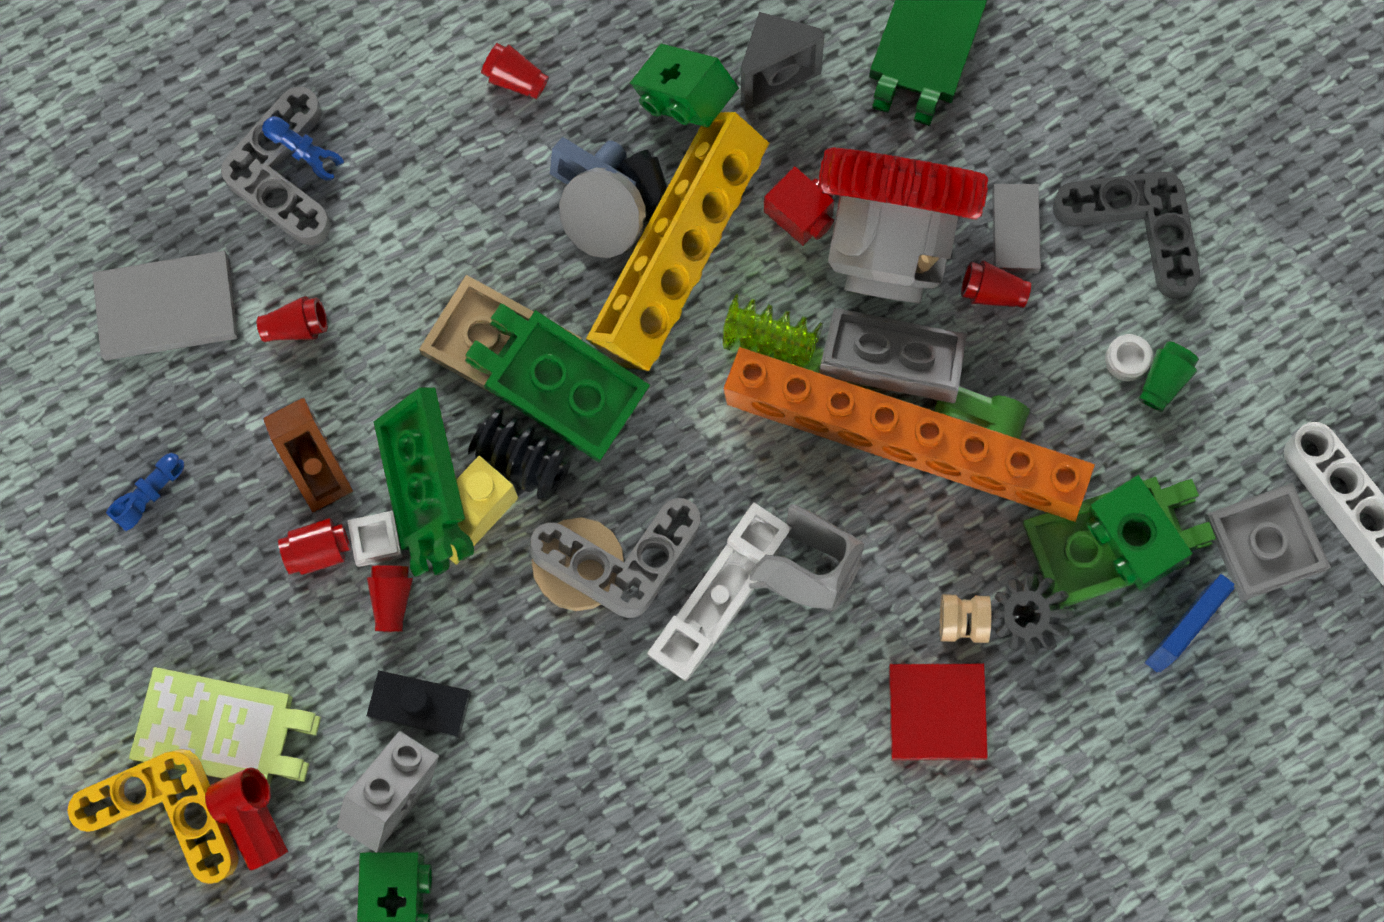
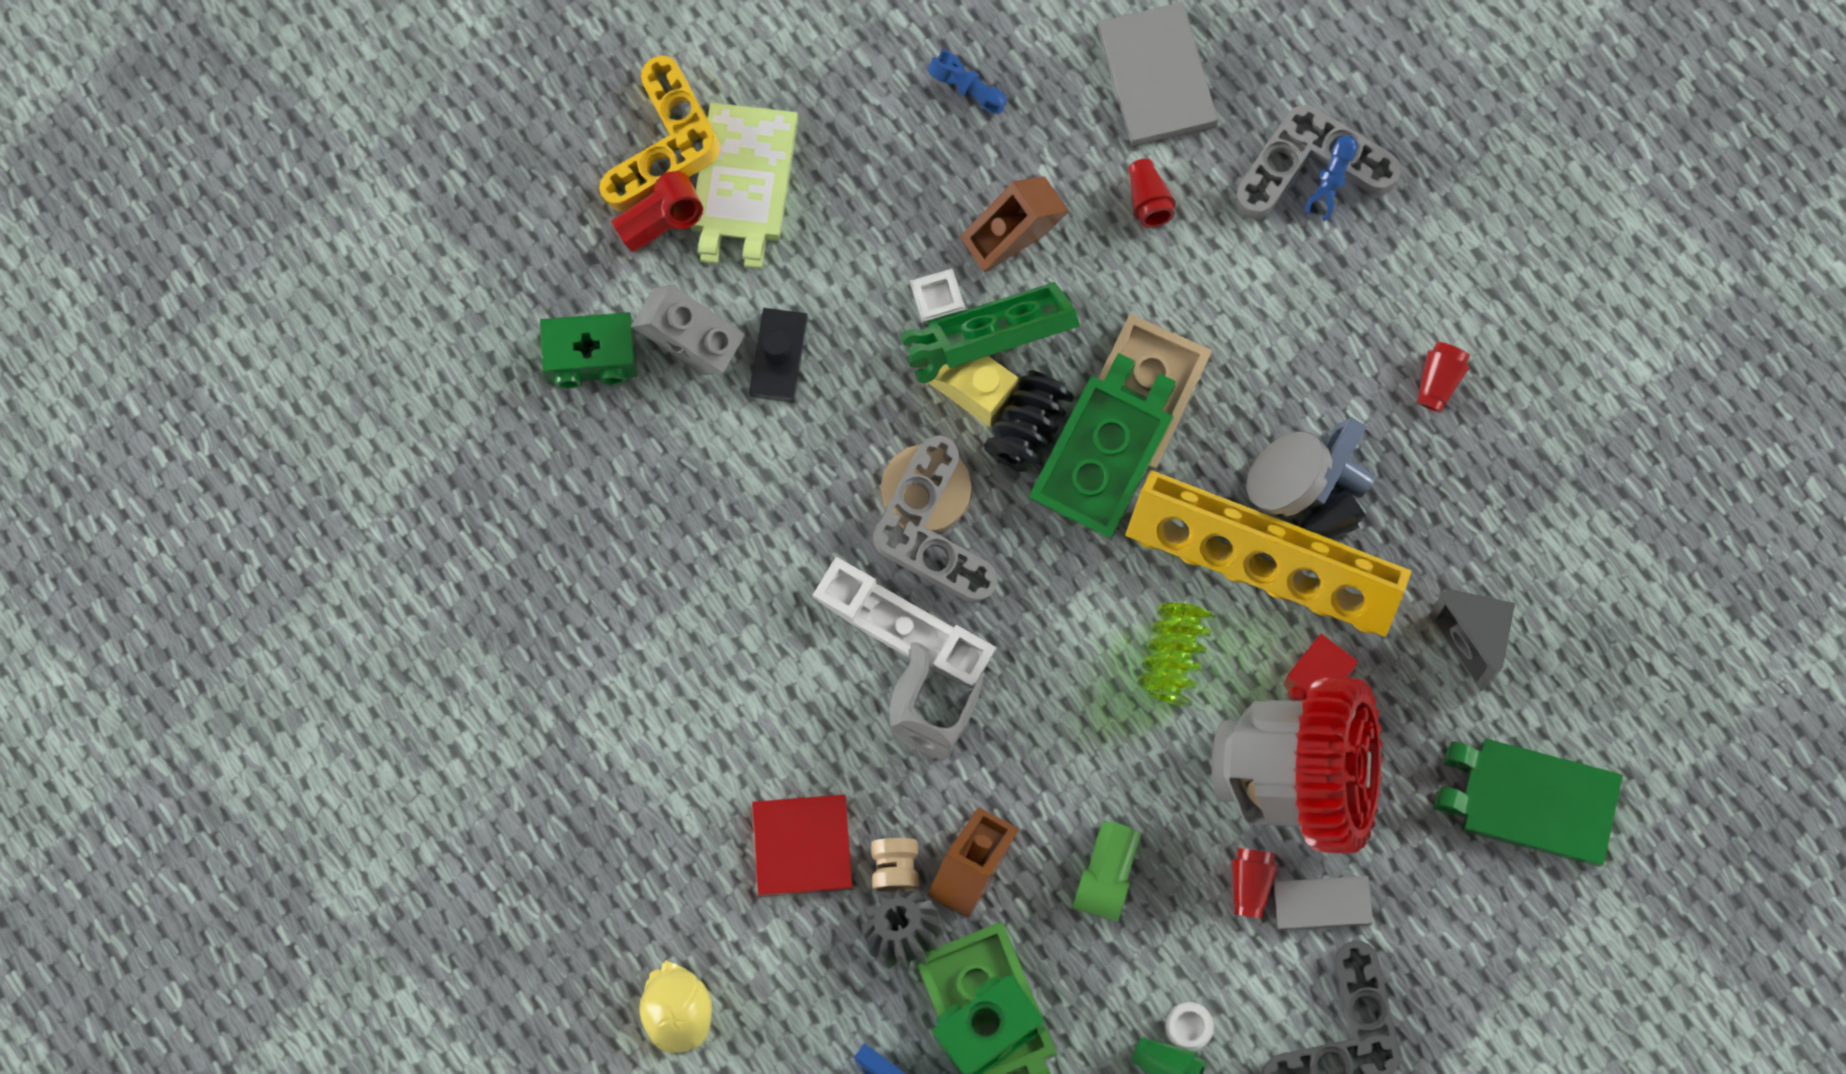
camera: 85 degrees right, 0 degrees up
(314, 547) = (921, 240): red brick -> none
(389, 596) = (880, 315): red cone -> none
(684, 85) = (1434, 541): green brick -> none
(893, 355) = (1163, 777): light grey tile -> none
(908, 434) = (1077, 796): orange brick -> none
(966, 542) = (972, 862): none -> dark orange slope
(1098, 848) = (675, 1009): none -> light yellow hair

